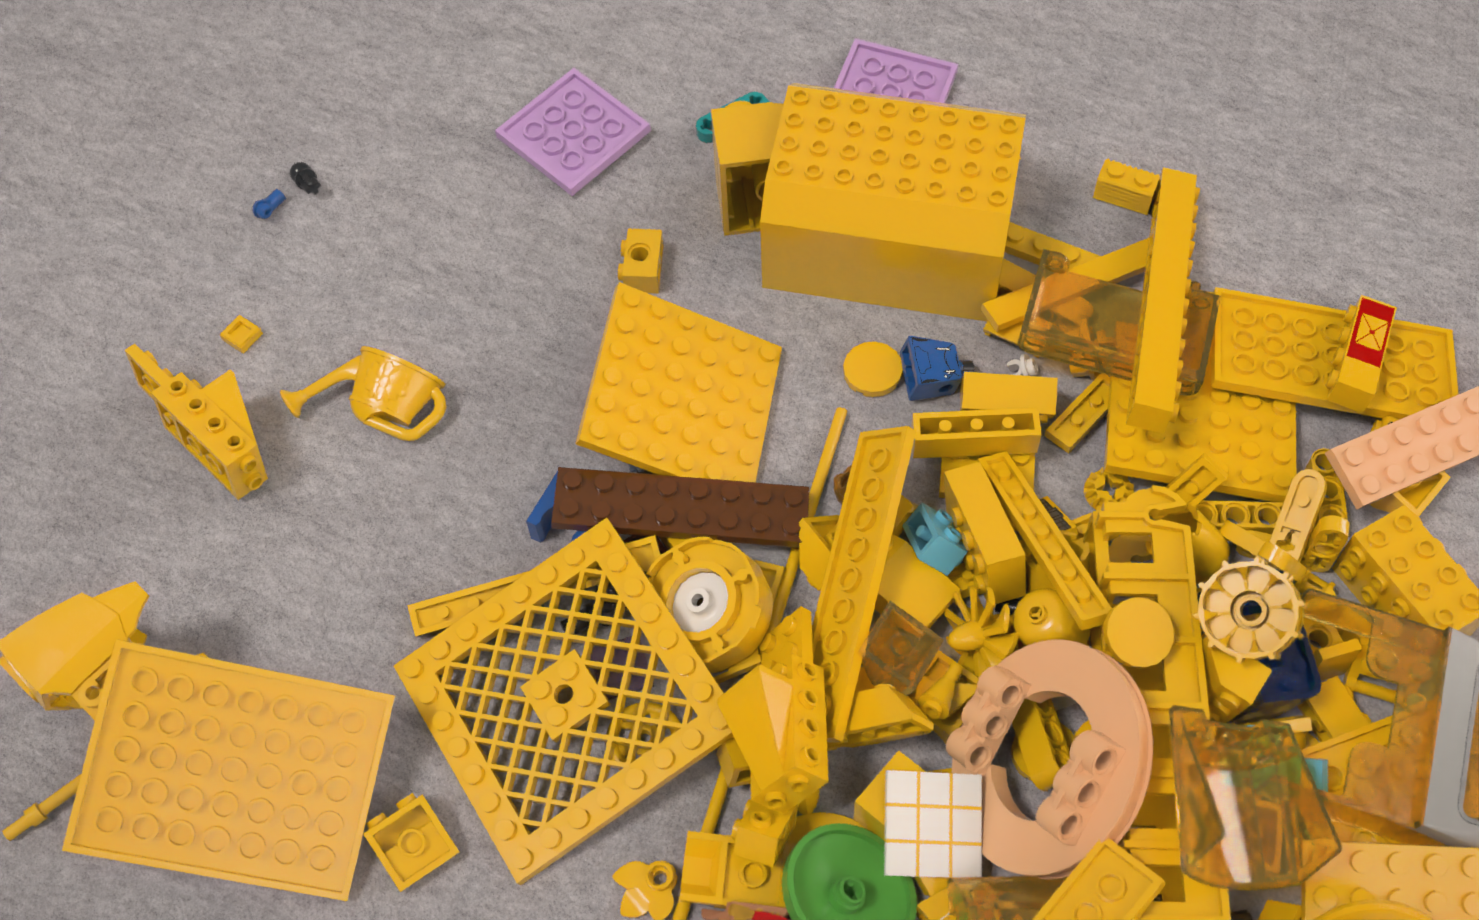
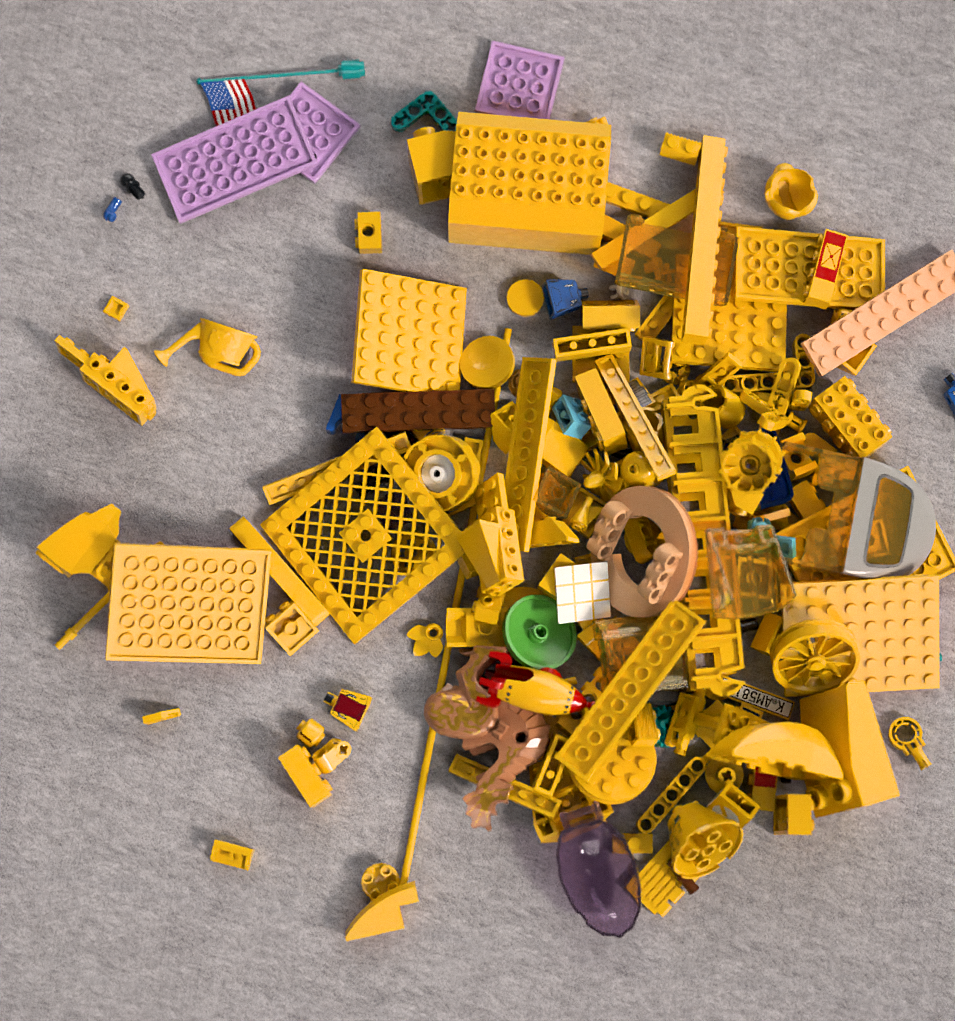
camera: 10 degrees left, 20 degrees up
(417, 752) = (282, 573): none -> yellow beam
(458, 152) = (234, 159): none -> lavender plate
(475, 94) = (232, 97): none -> flag
(803, 451) = (487, 362): none -> yellow piece
(1072, 463) = (651, 358): none -> yellow plate
(1138, 632) = (689, 480): yellow tile -> none
(1299, 250) = (790, 192): none -> yellow piece

